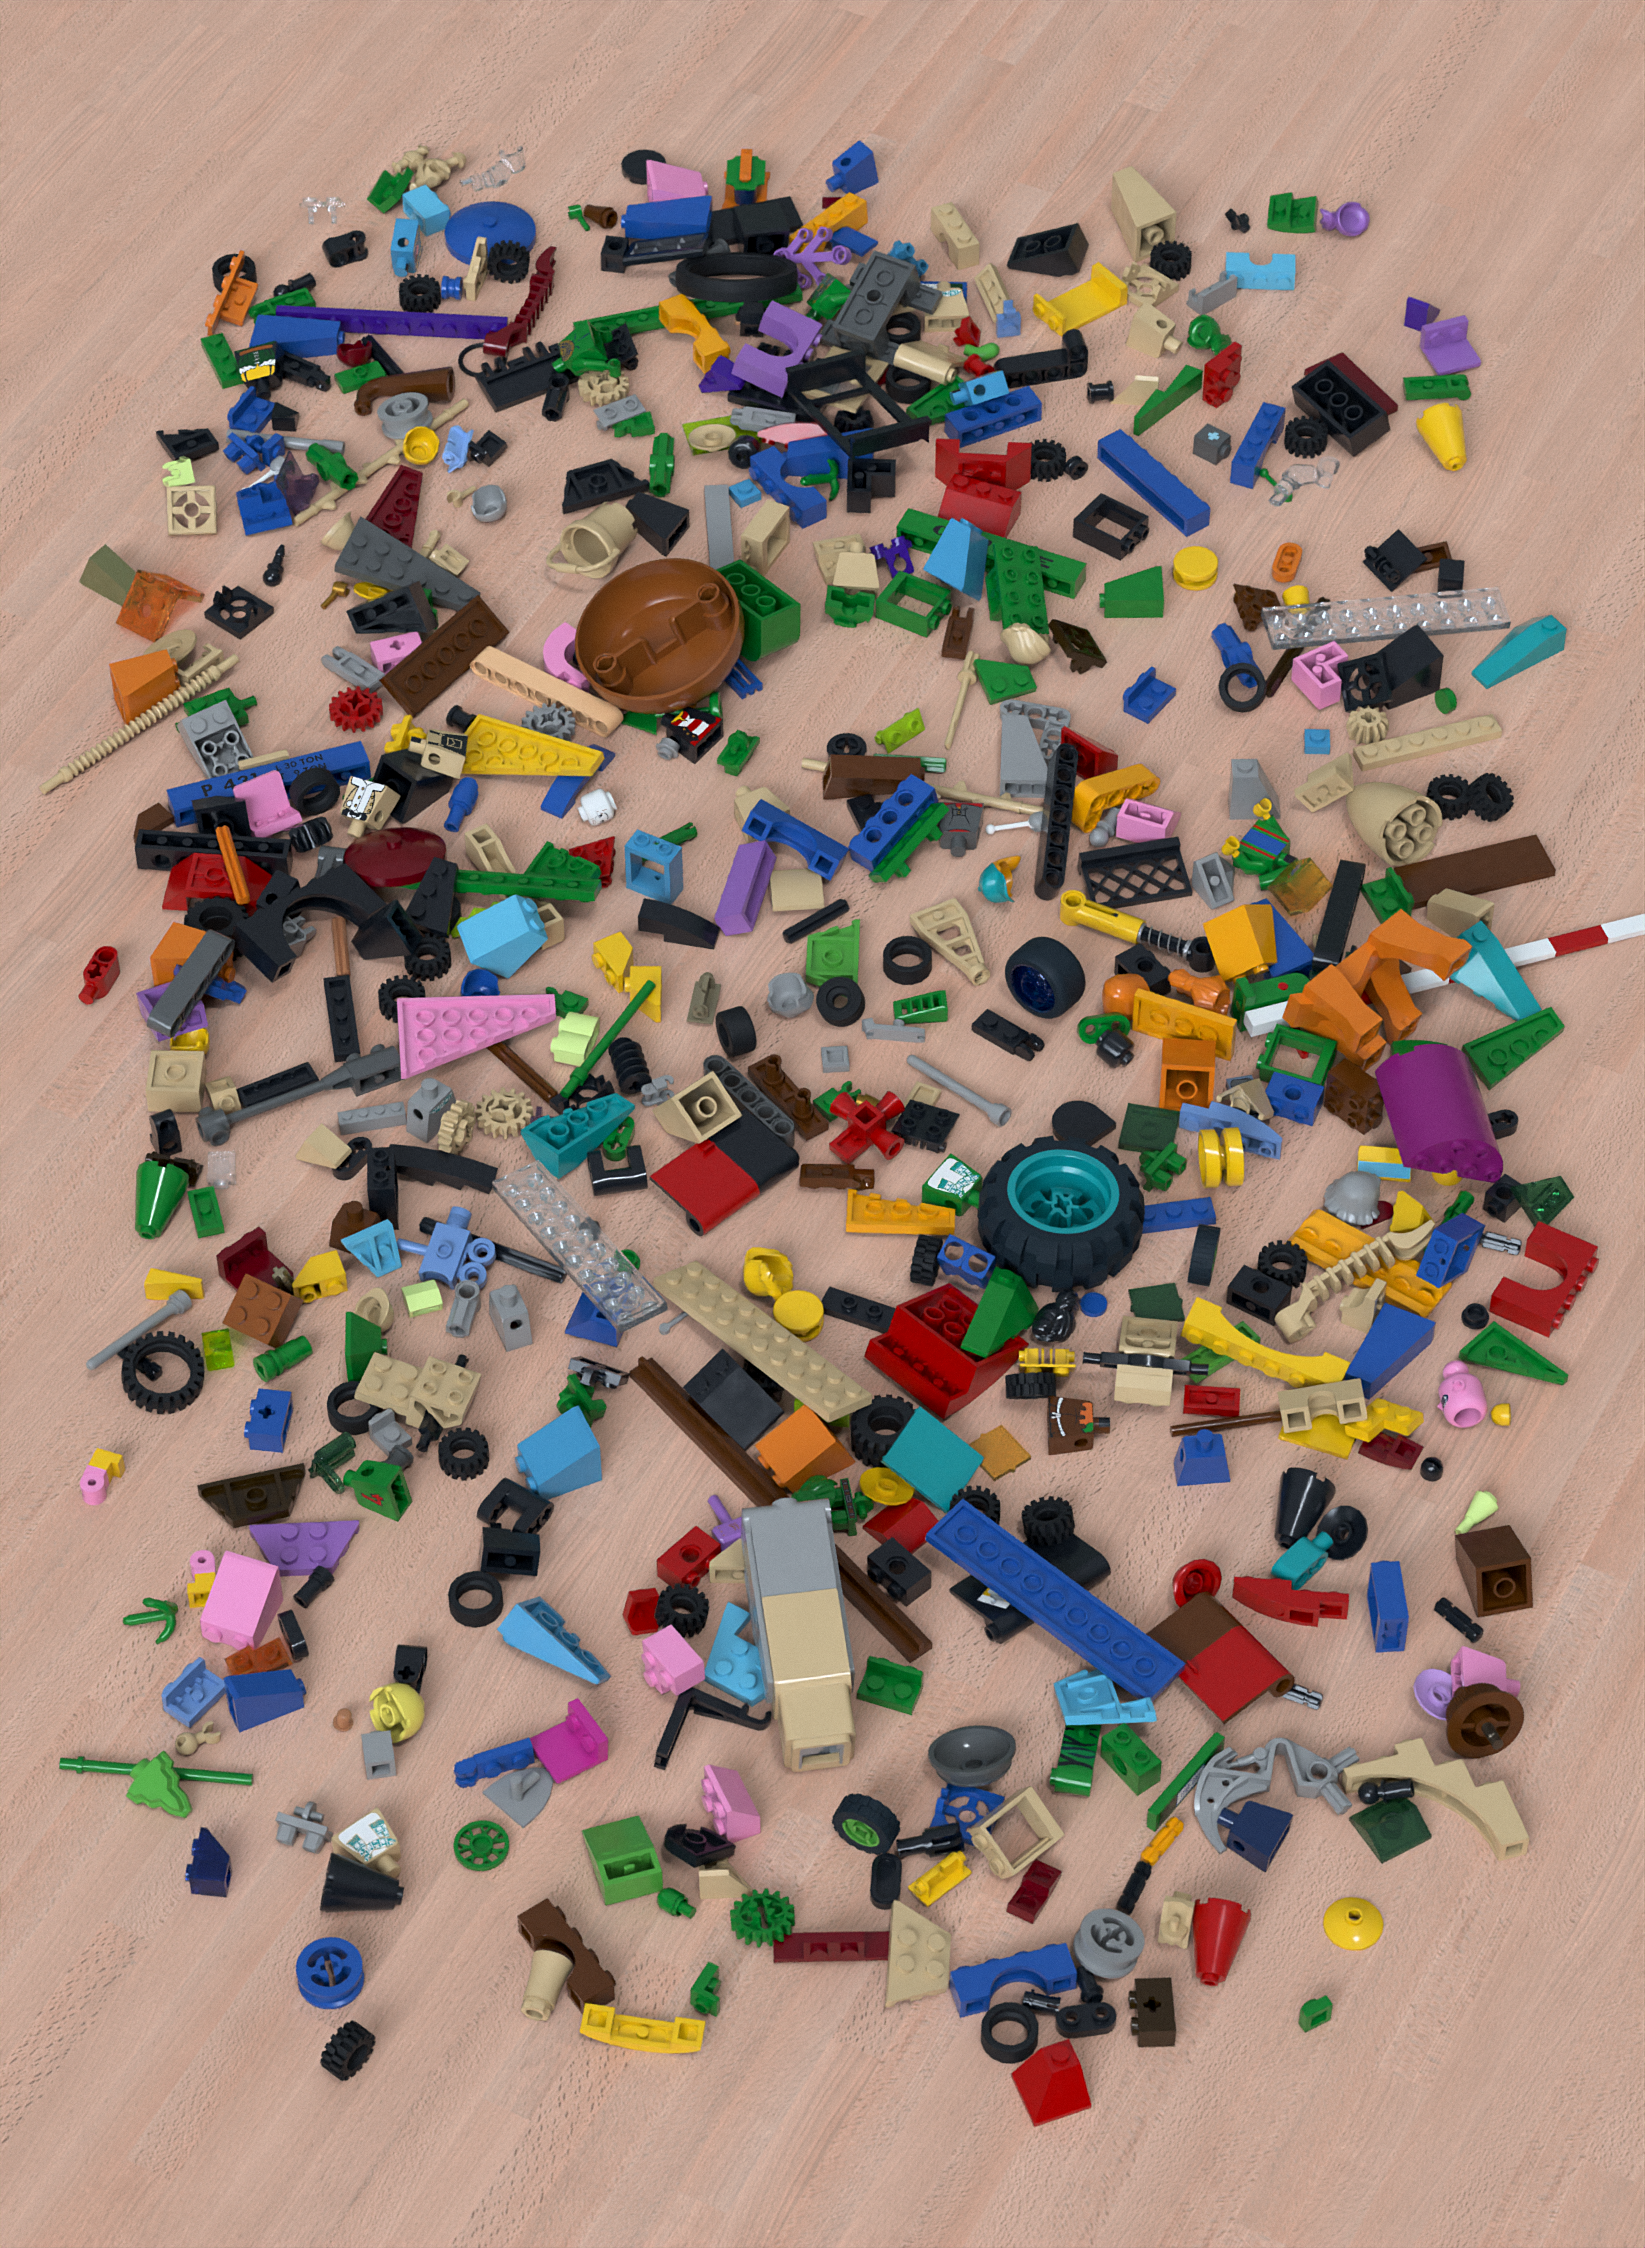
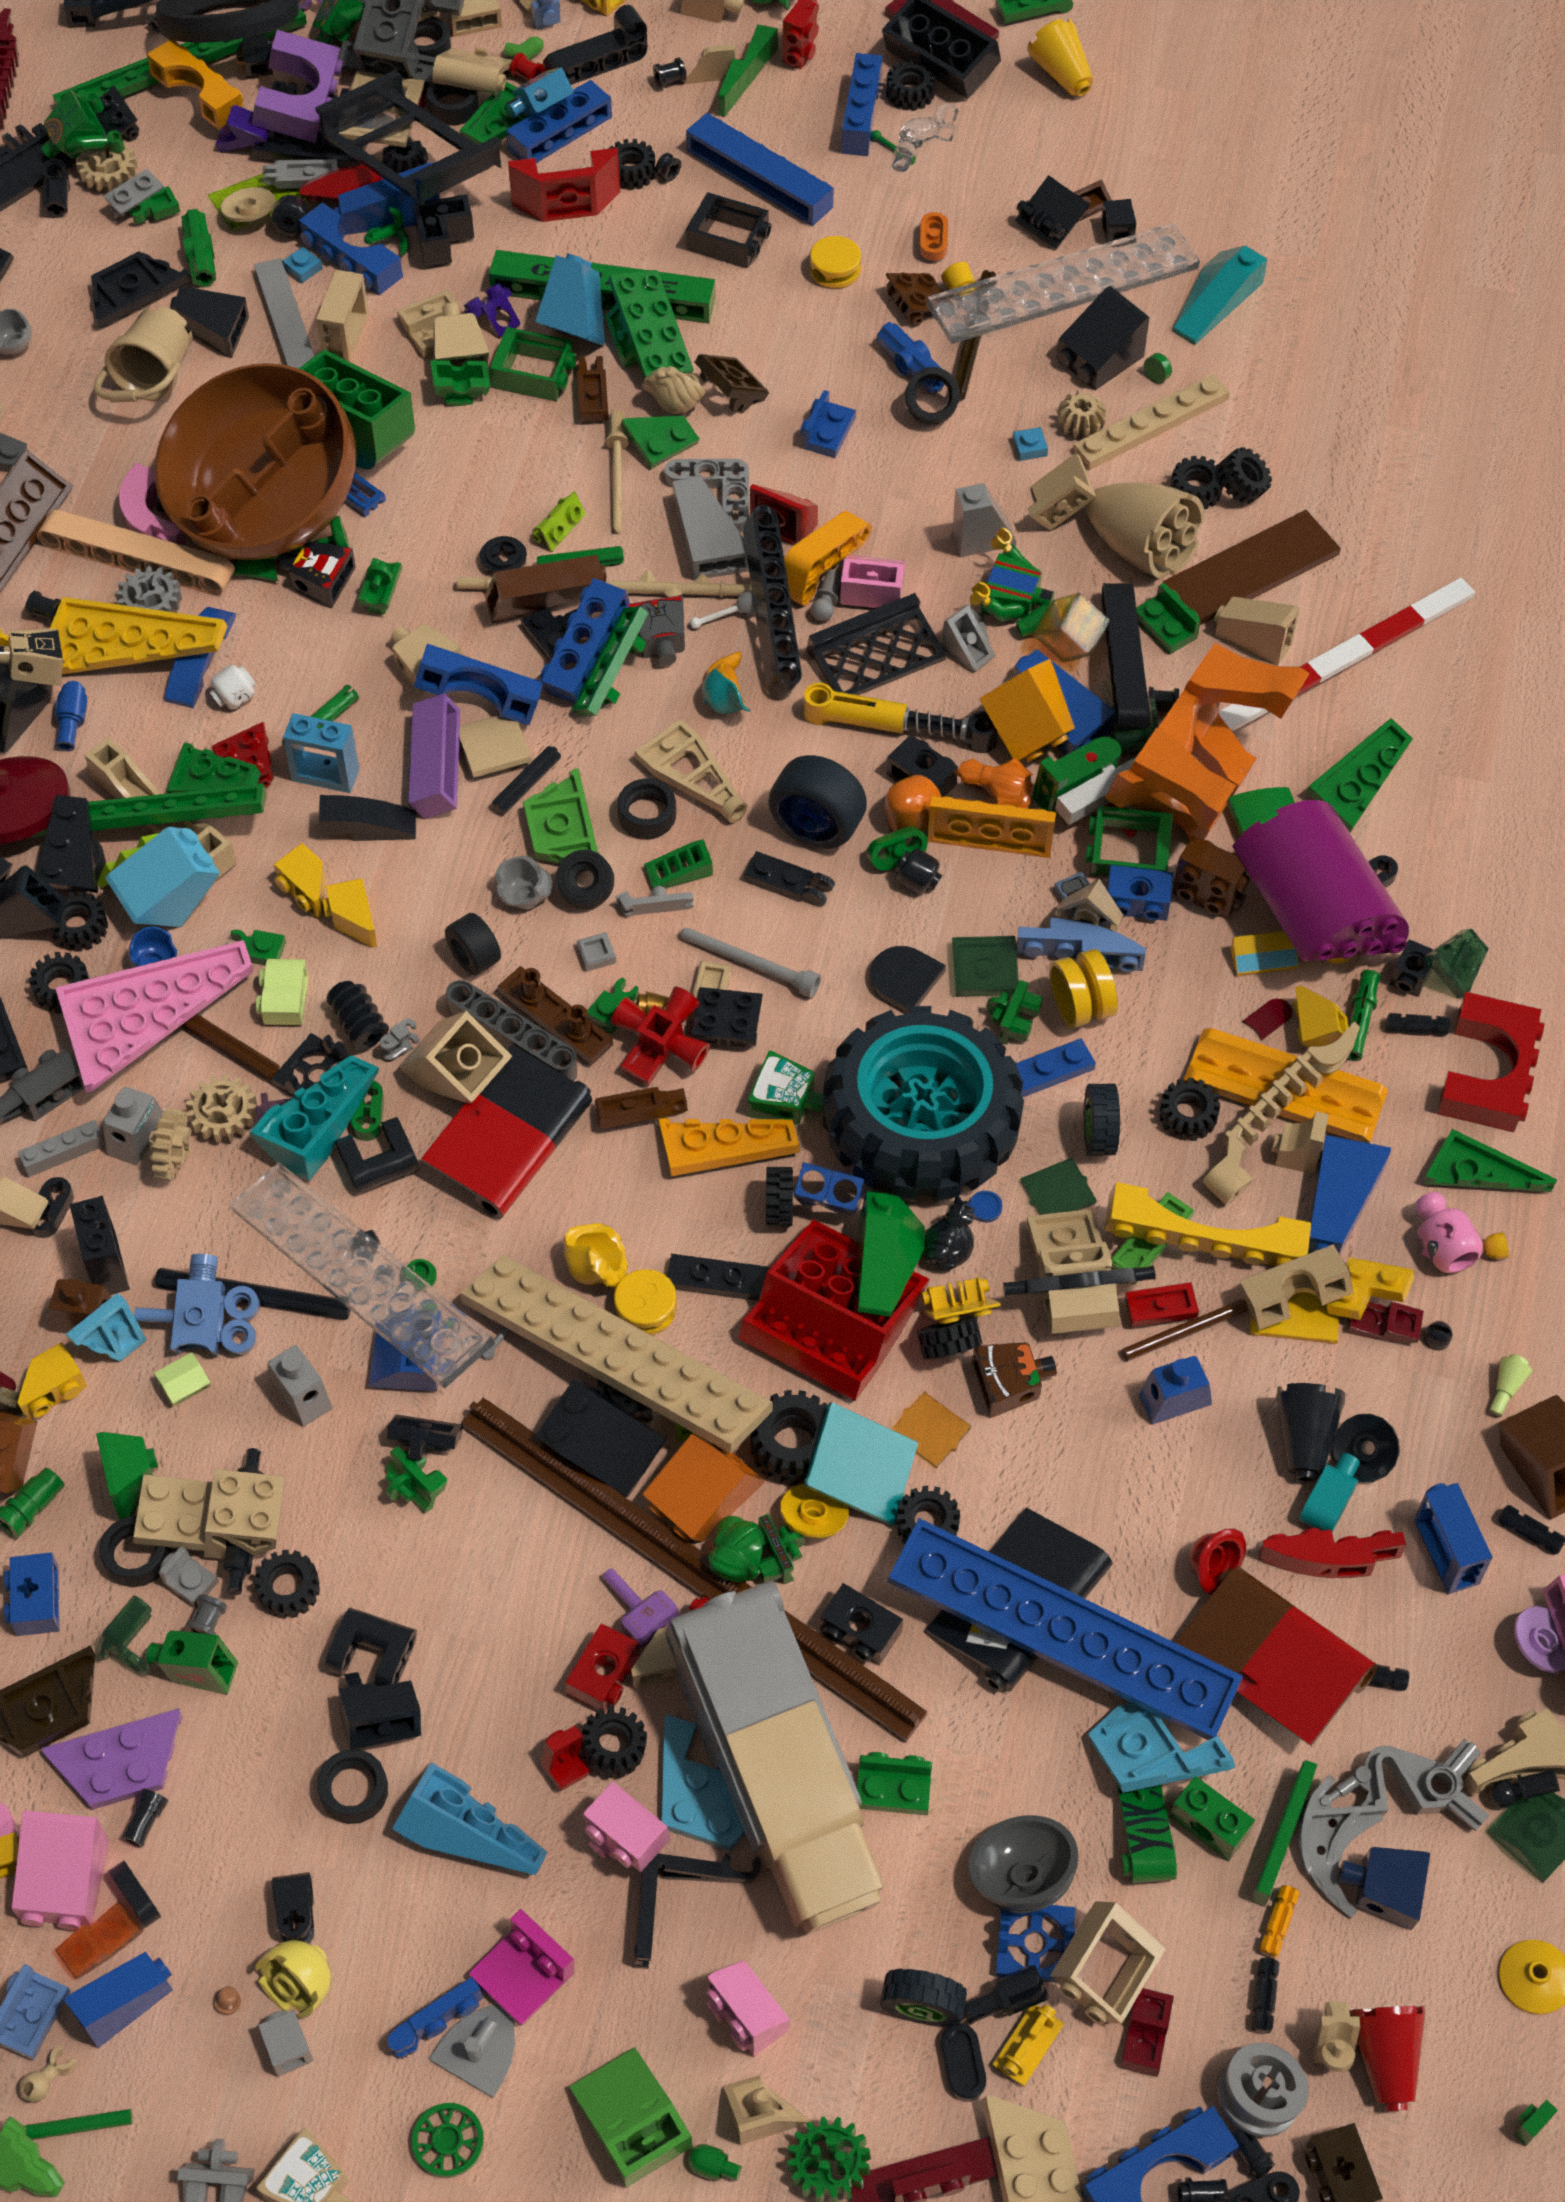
camera: 15 degrees left, 10 degrees up
(376, 1308) = (128, 1413): tan hat -> none
(447, 1168) = (164, 1197): black slope -> none
(464, 1308) = (238, 1386): light grey piece -> none
(560, 1456) = (408, 1564): dark azure slope -> none
(580, 1073) = (301, 1039): green bar -> none
(668, 749) = (296, 596): light grey plate -> none
(697, 1846) = (719, 2077): black tile -> none
(704, 1000) = (422, 908): dark tan hinge -> none
(904, 1523) = (847, 1557): red slope -> none
(967, 333) = (502, 30): red tile -> none
(982, 504) = (575, 229): red slope -> none
(1048, 1521) = (1024, 1528): black tyre -> none
(1134, 595) = (778, 307): green slope -> none
(1187, 1073) = (1010, 887): orange slope -> none
(1212, 444) = (811, 112): dark grey brick -> none
(1258, 1294) = (1184, 1167): black brick -> none
(1318, 674) = (1012, 363): bright pink brick -> none
(1347, 668) = (1041, 354): black piece -> none
(1354, 1198) = (1245, 1004): light grey hair -> none
(1446, 1252) = (1383, 1053): blue window -> none
(1475, 1316) = (1426, 1126): black plate -> none
(1494, 975) = (1324, 694): teal wedge -> none

